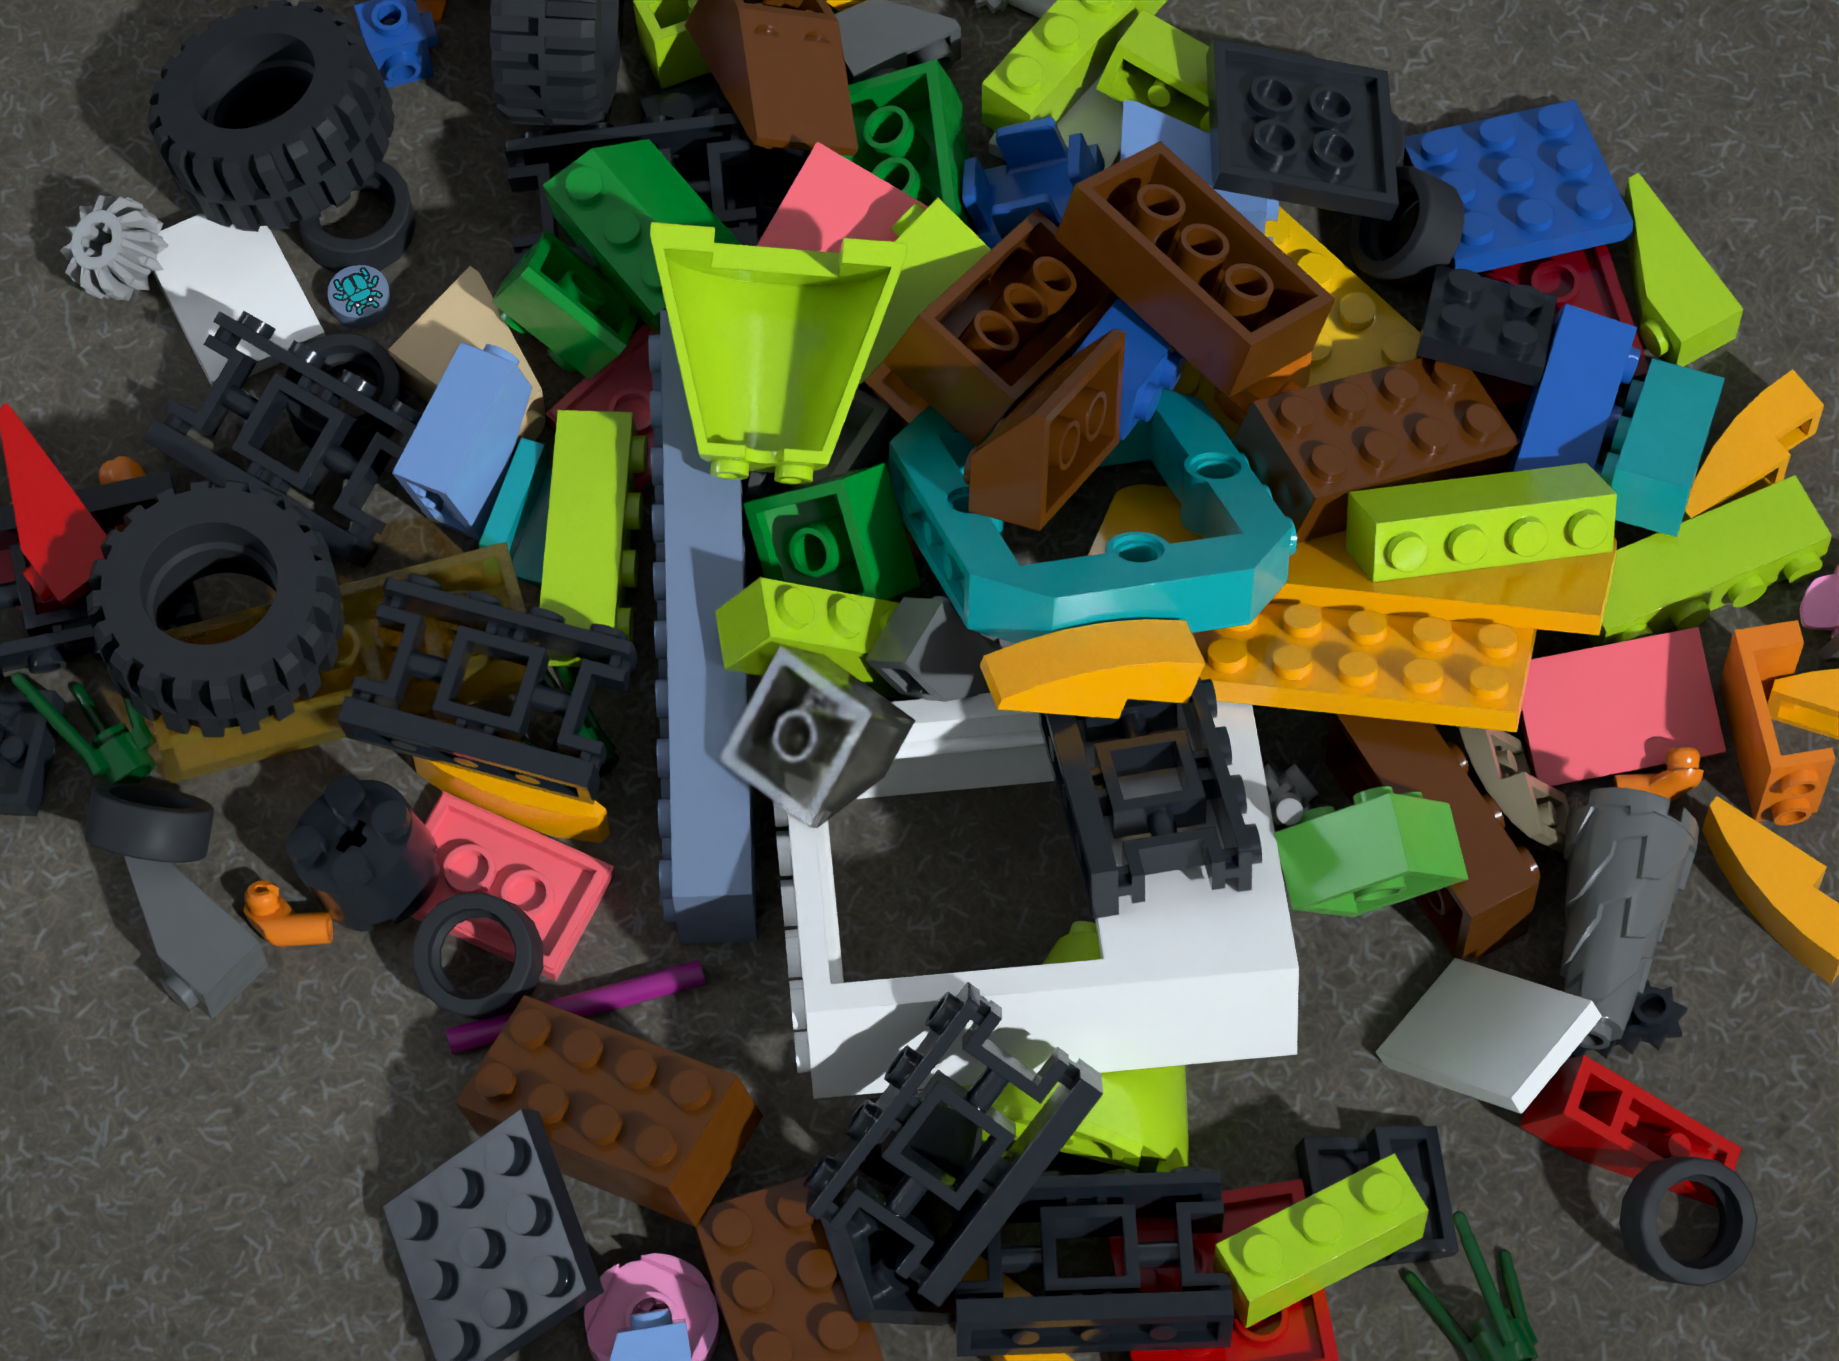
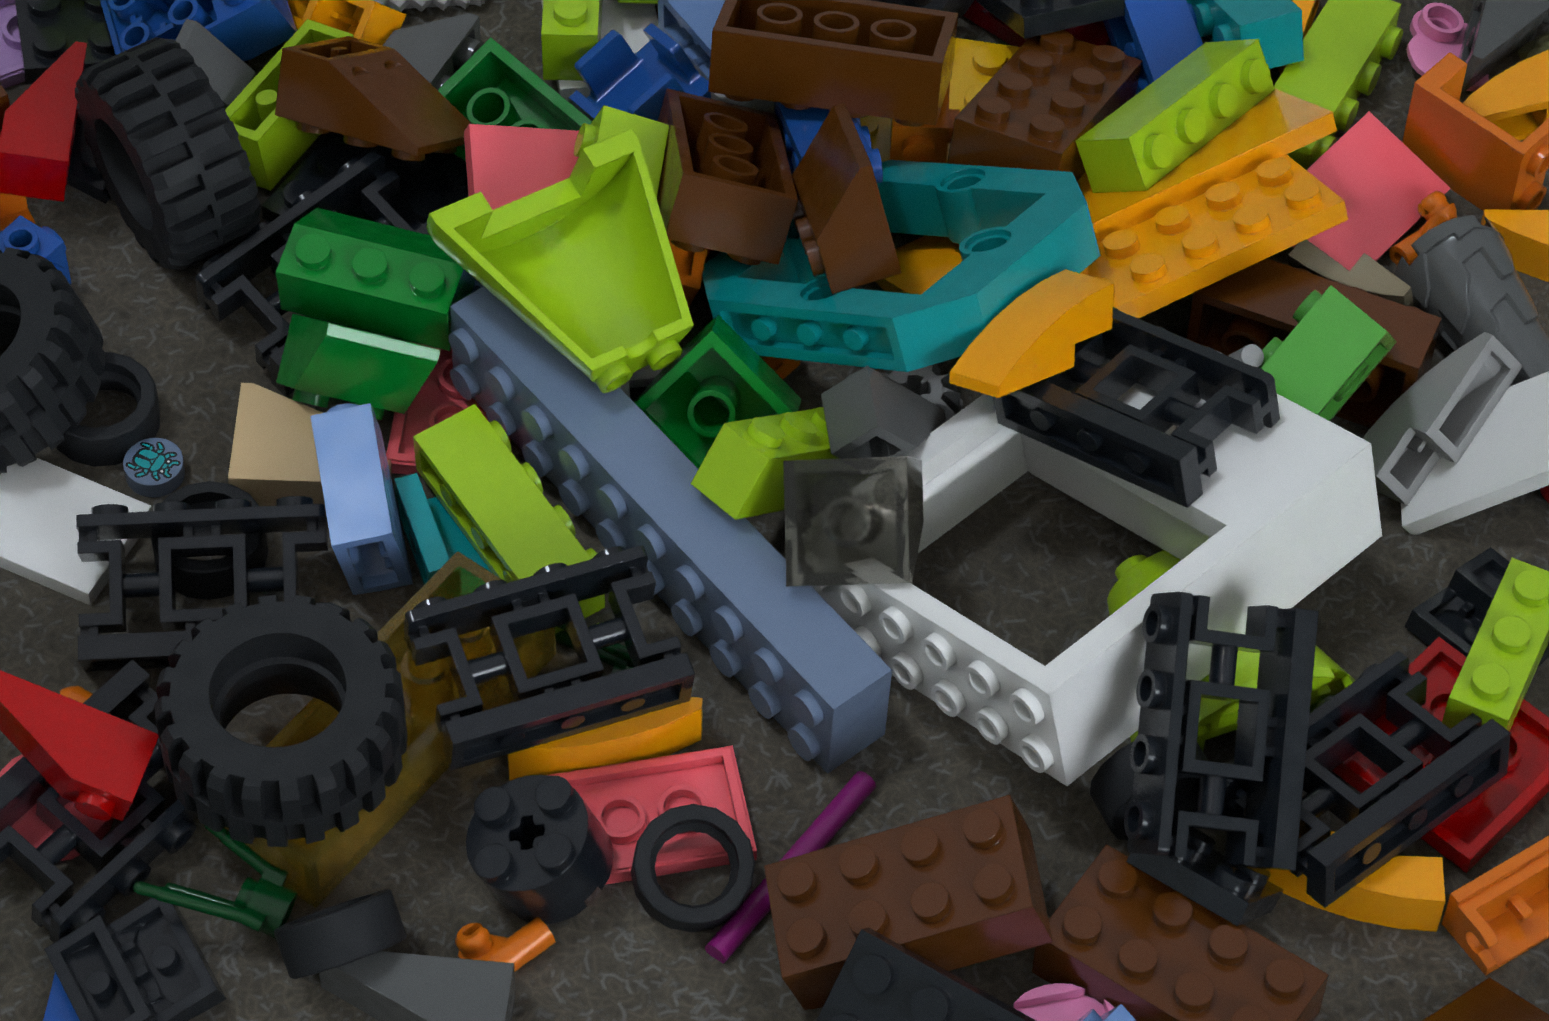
camera: 40 degrees left, 10 degrees down
(1465, 973) = (1439, 415): none -> light grey slope

